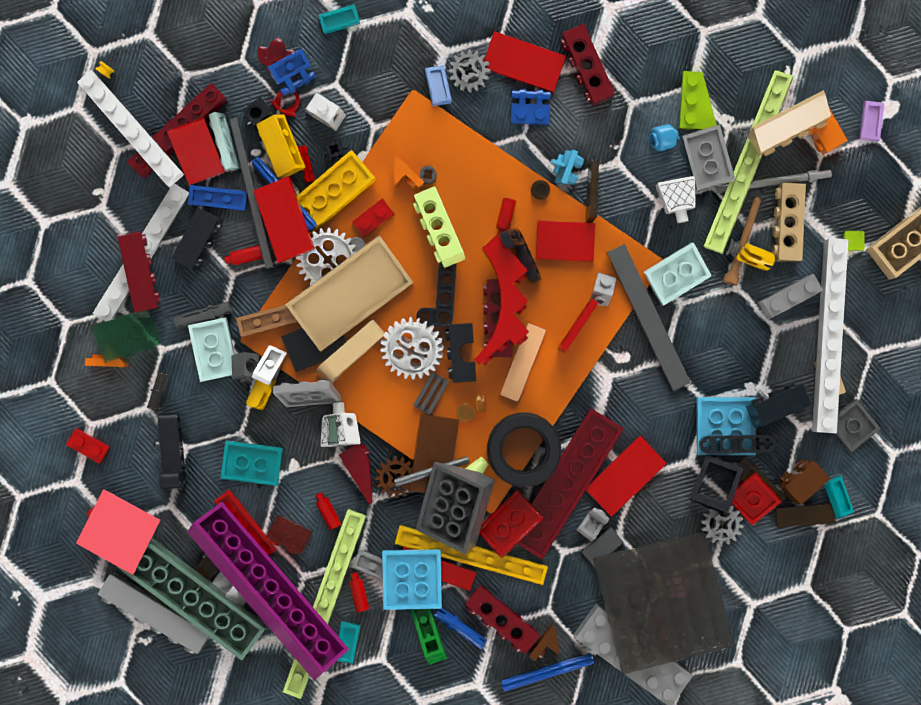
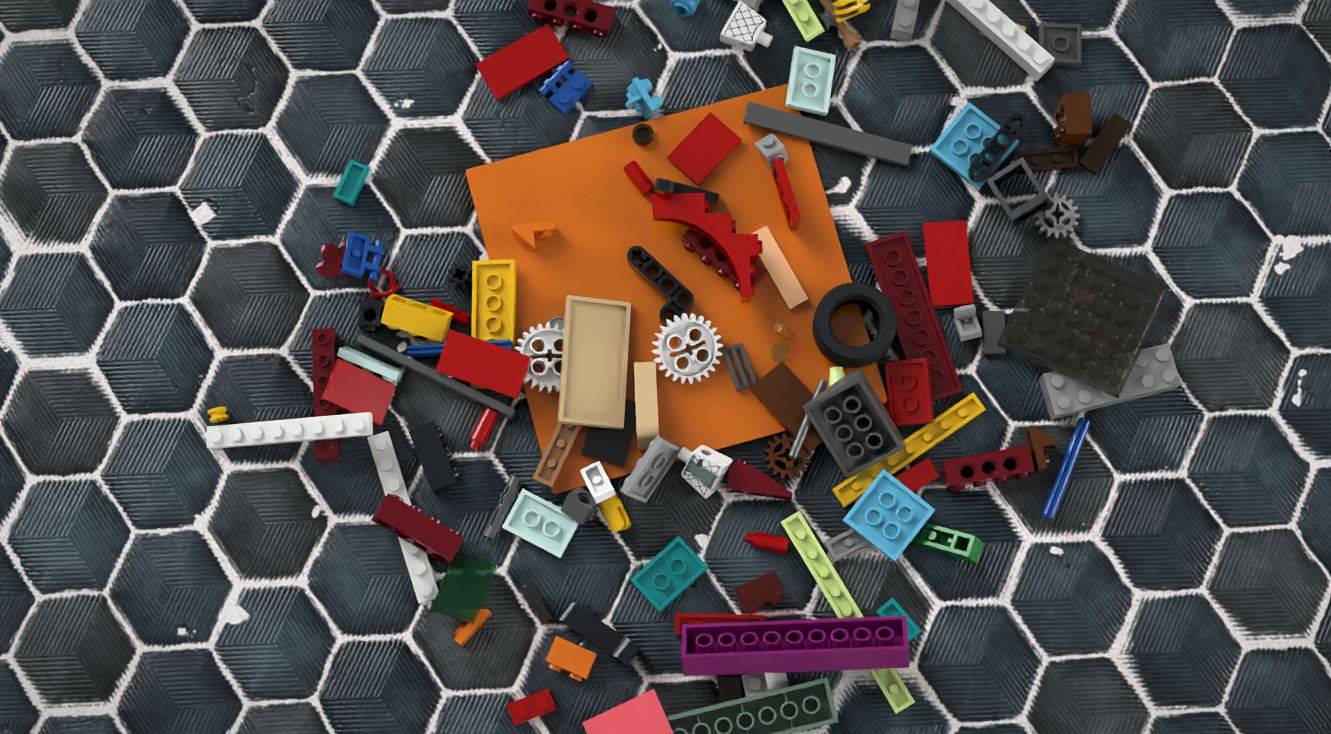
camera: 55 degrees left, 10 degrees down
(139, 445) = (570, 658): none -> orange brick
(218, 198) = (413, 410): blue plate -> none
(325, 111) = (419, 256): white torso -> none
(358, 593) = (862, 574): red cylinder -> none
(373, 217) = (546, 291): red plate -> none
(434, 175) = (545, 210): dark grey bush -> none
(438, 85) = (480, 146): medium blue tile -> none
(453, 251) = (574, 228): yellowish green brick -> none
(459, 335) = (740, 323): black arch -> none
(462, 629) = (956, 513): blue pin -> none
(467, 78) = (498, 106): light grey gear -> none
(592, 192) = (681, 93): dark brown tile -> none
(755, 499) = (1056, 172): red tile -> none
(778, 404) = (991, 88): black brick -> none
(839, 497) = (1111, 103): teal tile -> none

